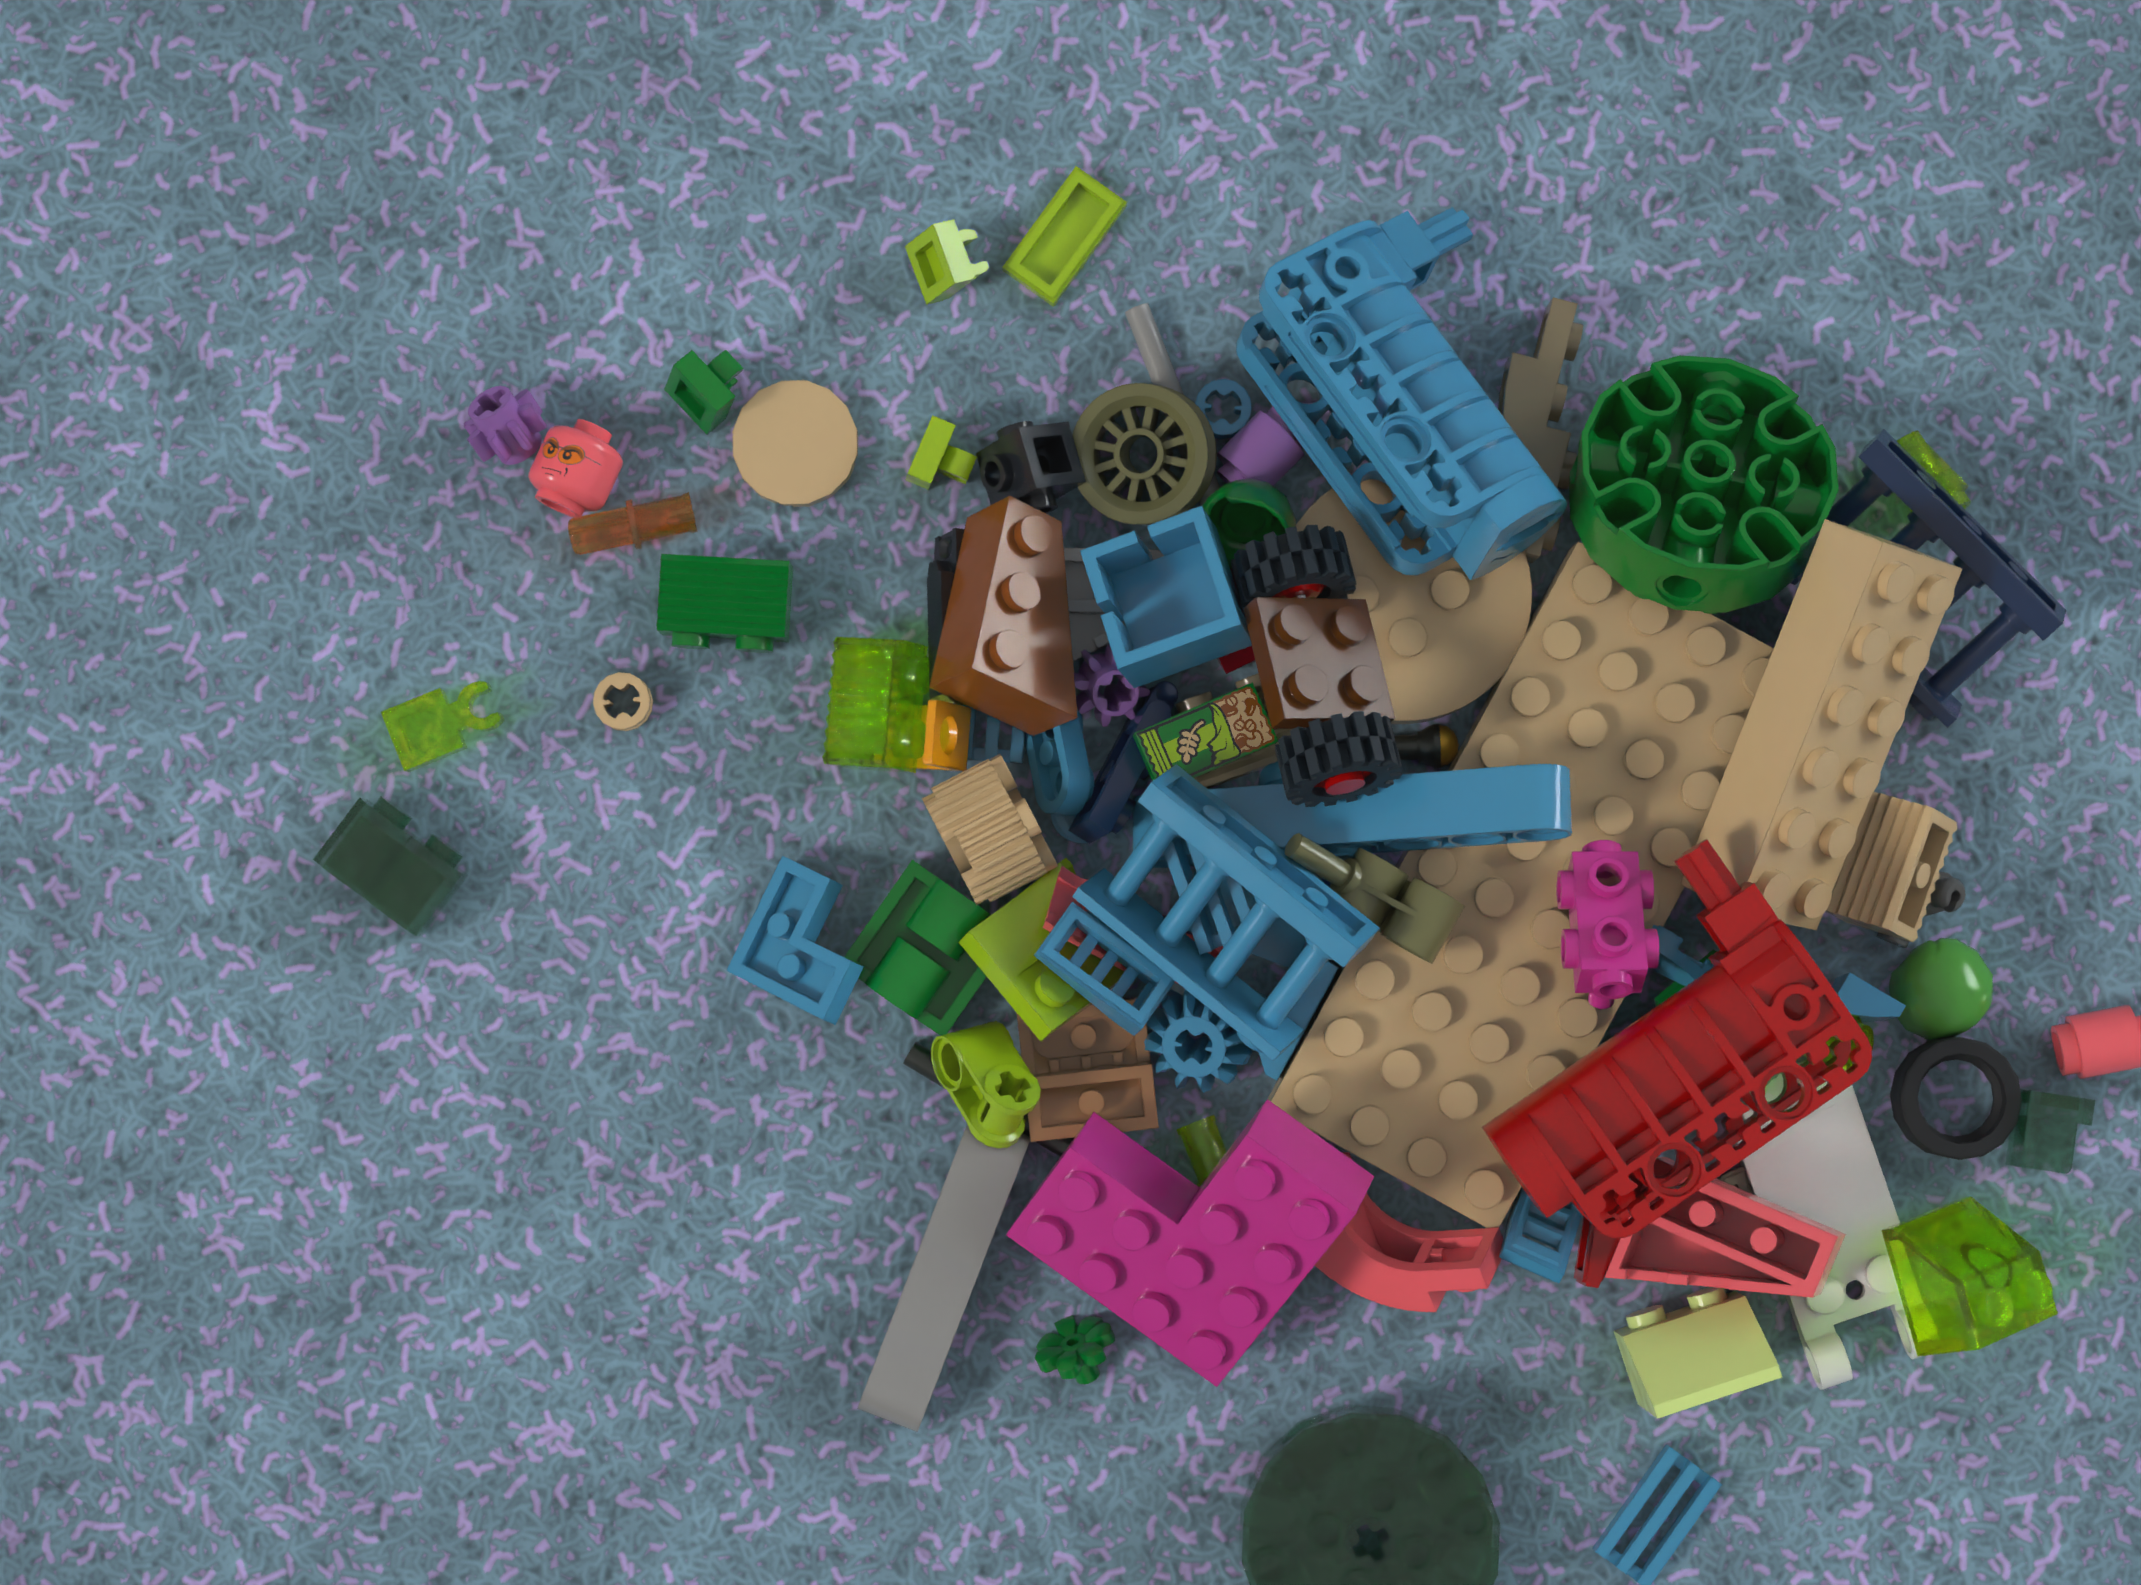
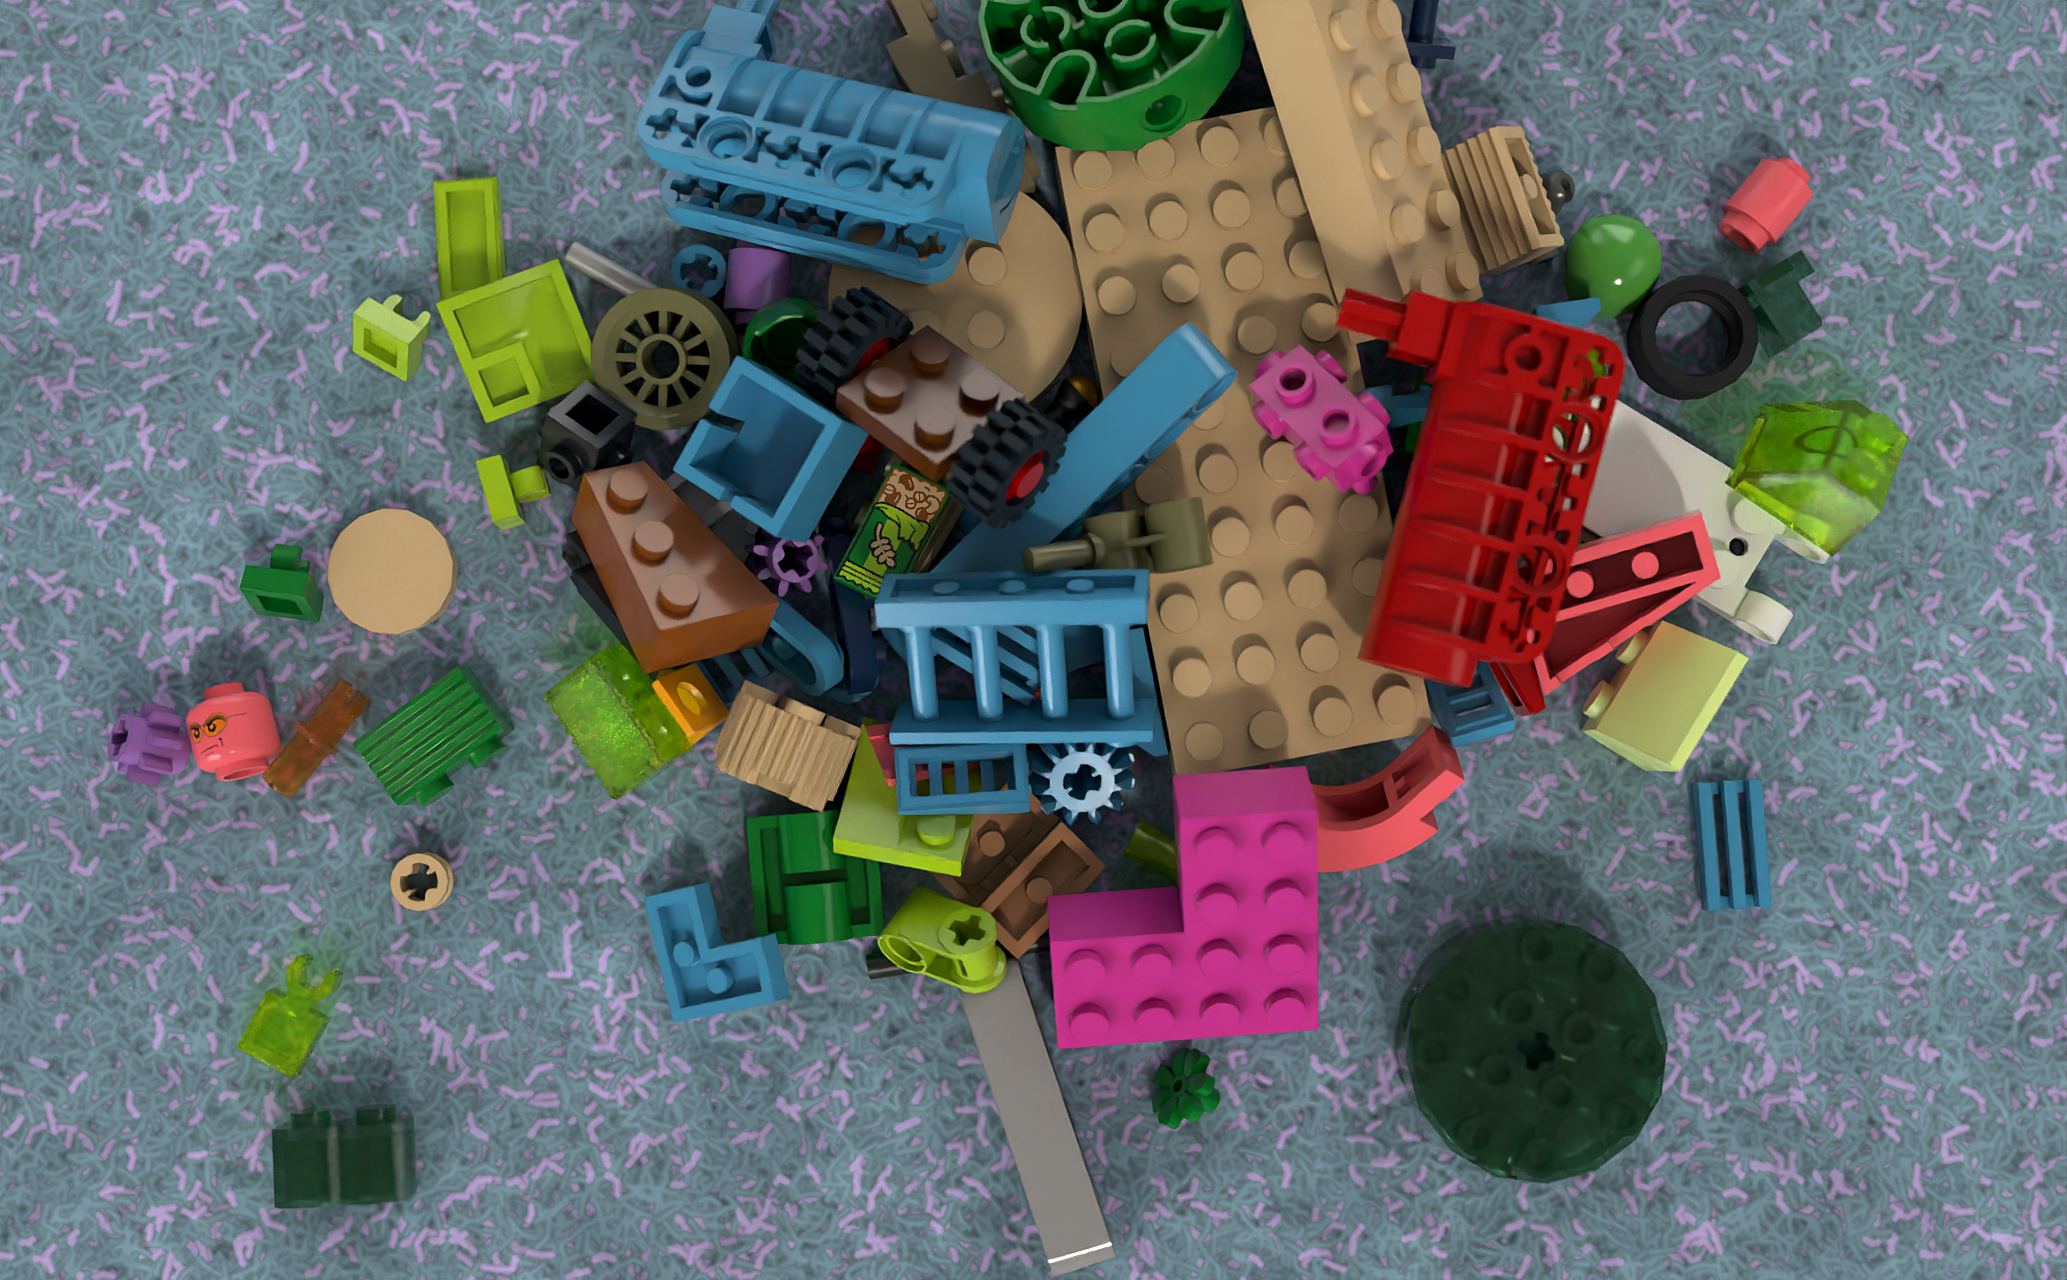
camera: 40 degrees left, 0 degrees up
(1042, 346) = (519, 339): none -> lime plate

